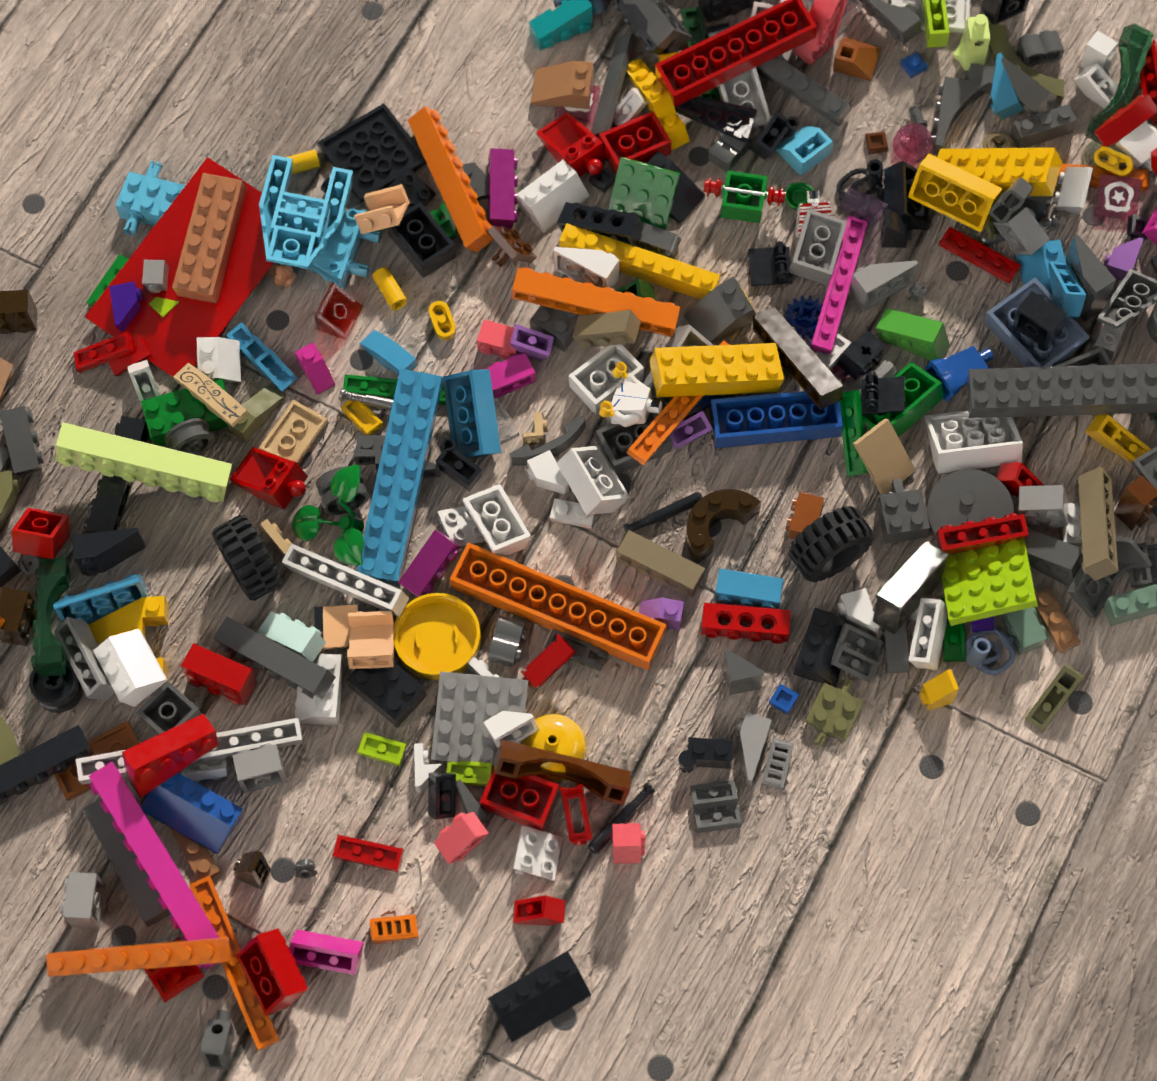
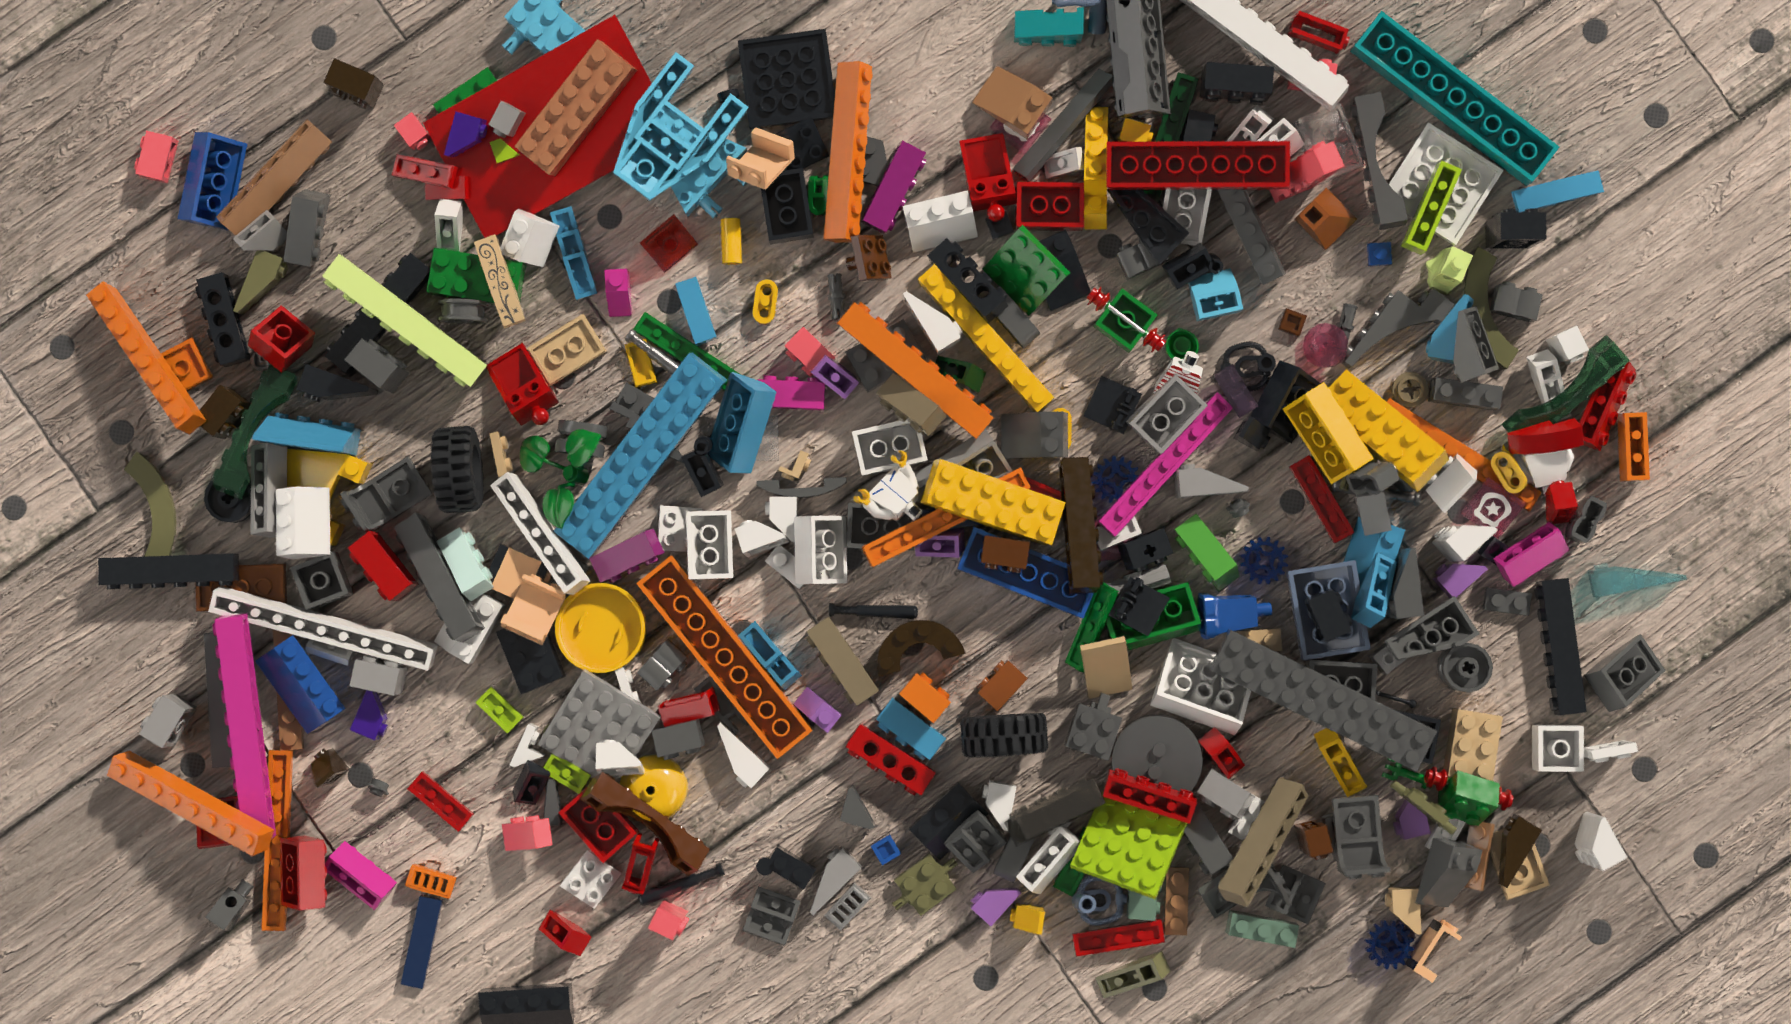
camera: 30 degrees right, 20 degrees up
(79, 328) = (413, 132): none -> coral brick
(136, 509) = (378, 365): none -> dark grey brick
(168, 753) = (297, 633): red wedge -> none
(194, 617) = (386, 495): none -> dark grey bracket
(259, 410) = (546, 307): olive slope -> none
(269, 811) = (370, 717): none -> dark purple slope
(304, 161) = (708, 53): yellow piece -> none
(412, 988) = (421, 942): none -> dark blue tile
(499, 290) = (836, 296): none -> dark grey pin
(536, 498) = (757, 537): none -> white slope
(553, 689) = (678, 738): none -> dark grey brick
(598, 586) = (769, 655): none -> dark azure slope
(620, 685) = (744, 760): none -> white slope
(746, 552) = (925, 697): none -> orange brick
(748, 403) = (1005, 553): none -> reddish brown brick
(901, 696) = (993, 903): none -> medium lavender slope
(962, 329) = (1257, 552): none -> clear blue gear
(1024, 672) = (1118, 937): none -> red plate
(1107, 223) = (1461, 541): none -> white slope

